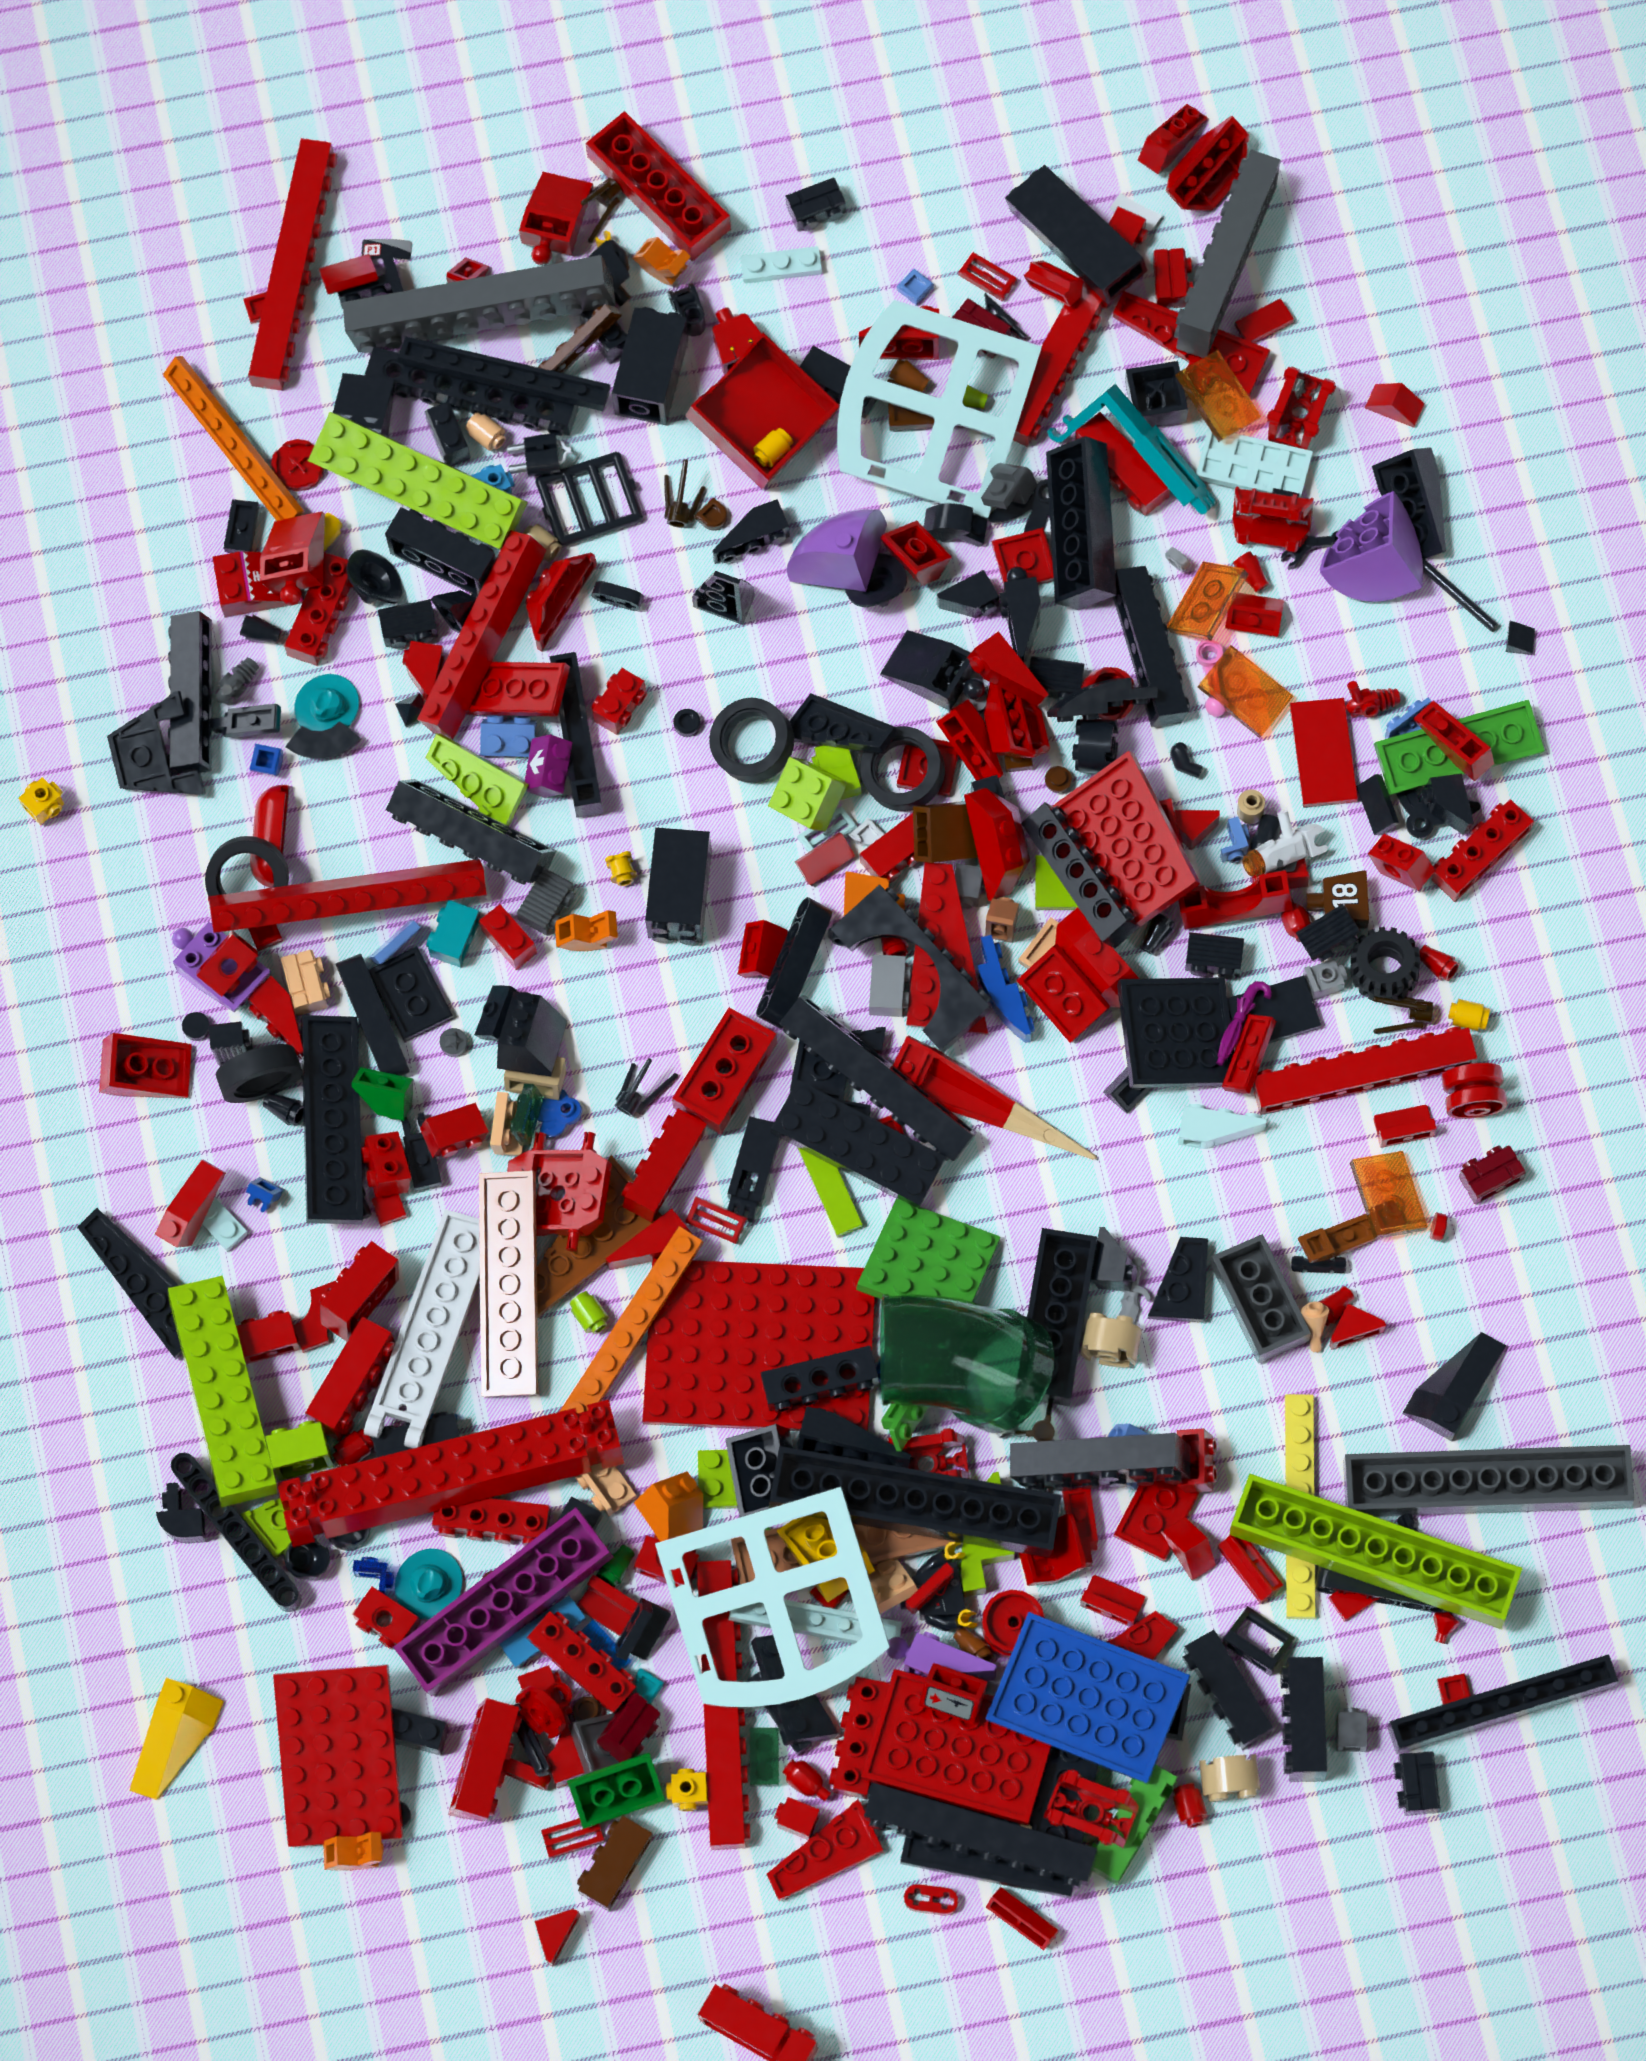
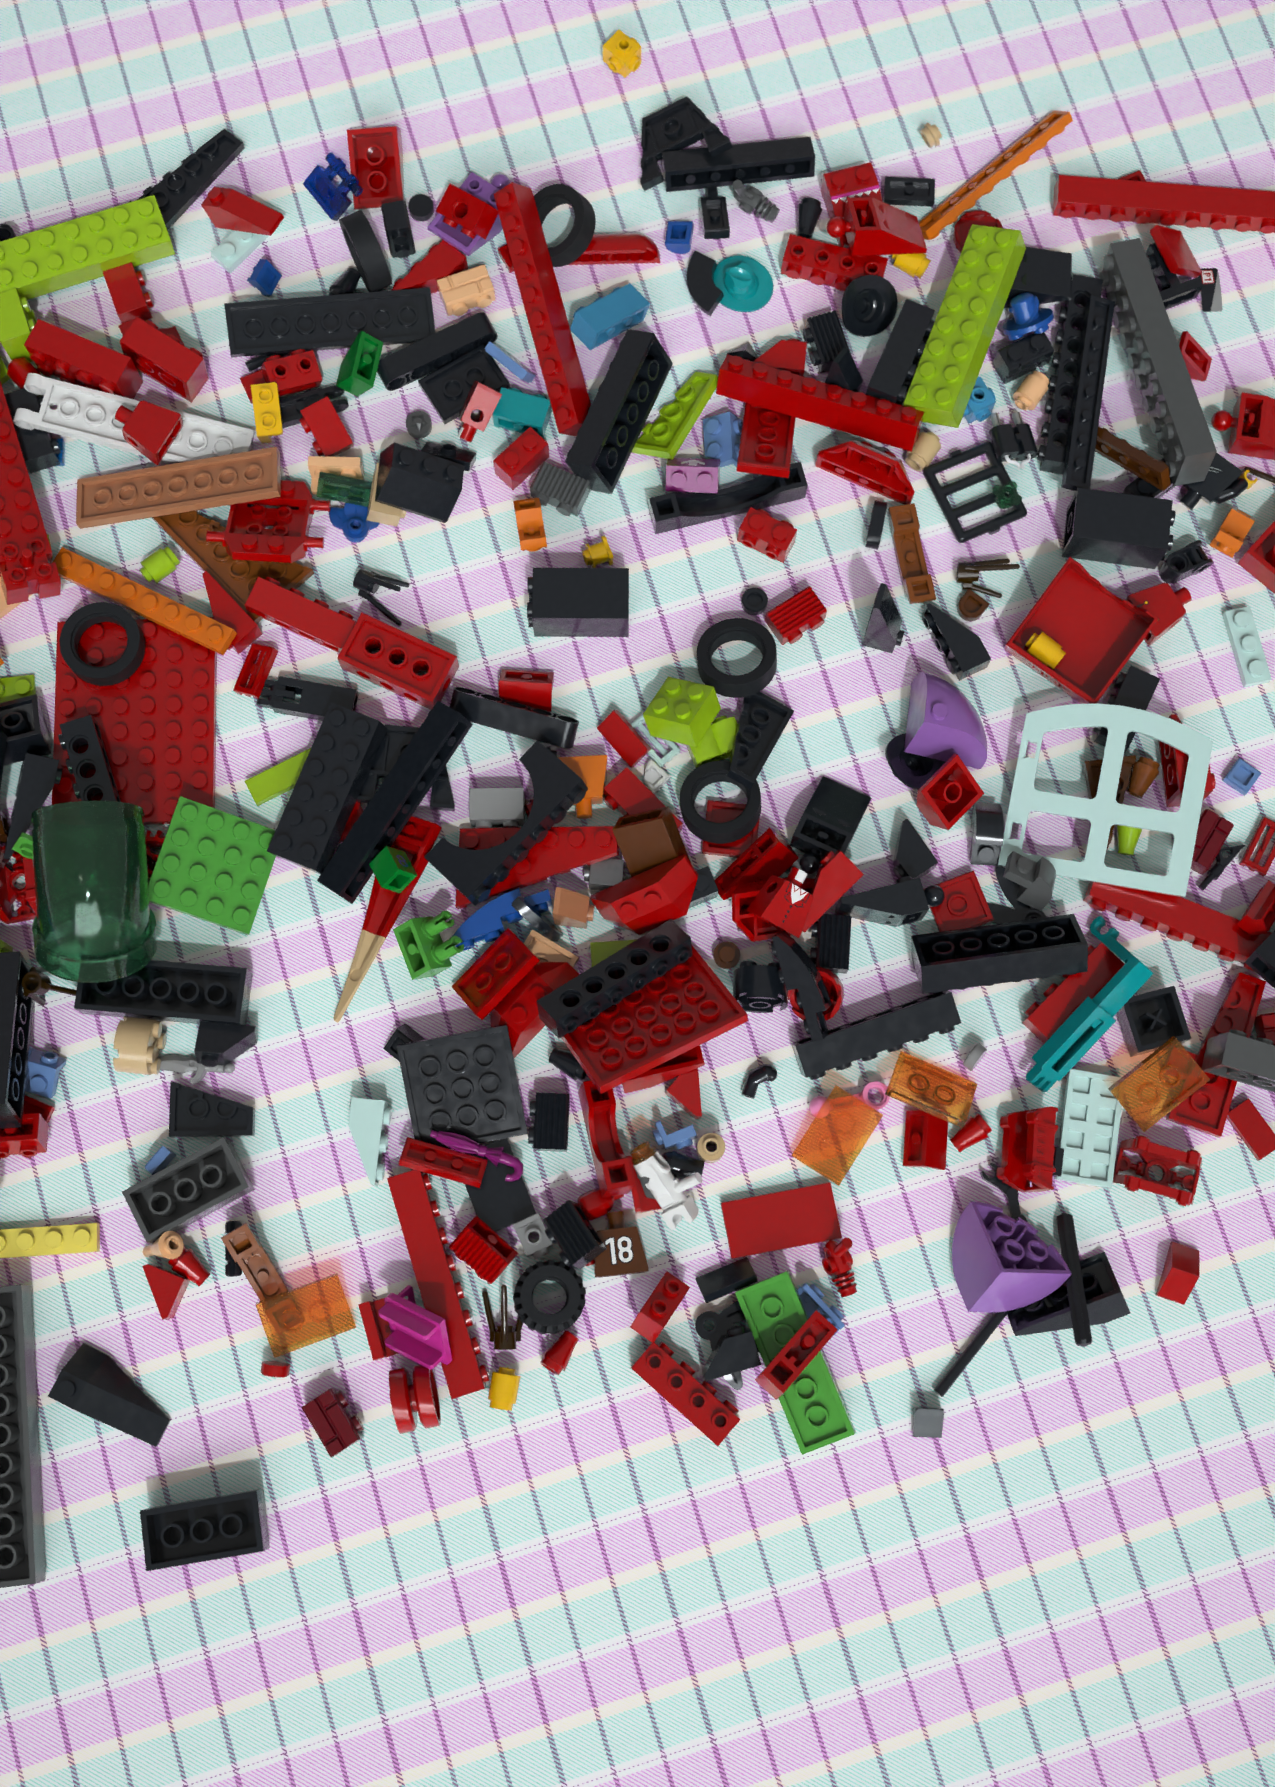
camera: 80 degrees right, 5 degrees up
(170, 1119) = (327, 192): none -> clear blue plate
(178, 498) = (931, 135): none -> tan plate
(358, 834) = (609, 316): none -> dark azure brick
(411, 423) = (1027, 317): none -> blue plate
(429, 1189) = (267, 411): none -> yellow bracket
(443, 1304) = (150, 428): none -> red torso
(449, 972) = (480, 398): none -> torso
(604, 472) = (1006, 502): none -> clear green plate
(654, 567) = (909, 554): none -> dark orange slope
(678, 1332) = (85, 618): none -> black tyre
(709, 681) = (796, 616): none -> red brick
(949, 1083) = (393, 869): none -> green brick
(1010, 950) = (536, 919): none -> black tile
(1019, 708) = (783, 902): none -> red torso
(1029, 1062) = (423, 946): none -> bright green brick
(1227, 1329) = (160, 1160): none -> medium blue tile
(1336, 1023) = (483, 1250): none -> red brick
(1402, 490) = (1074, 1283): none -> black axle
(1412, 1081) = (415, 1330): none -> dark pink piece
(1587, 1293) = (204, 1529): none -> black brick

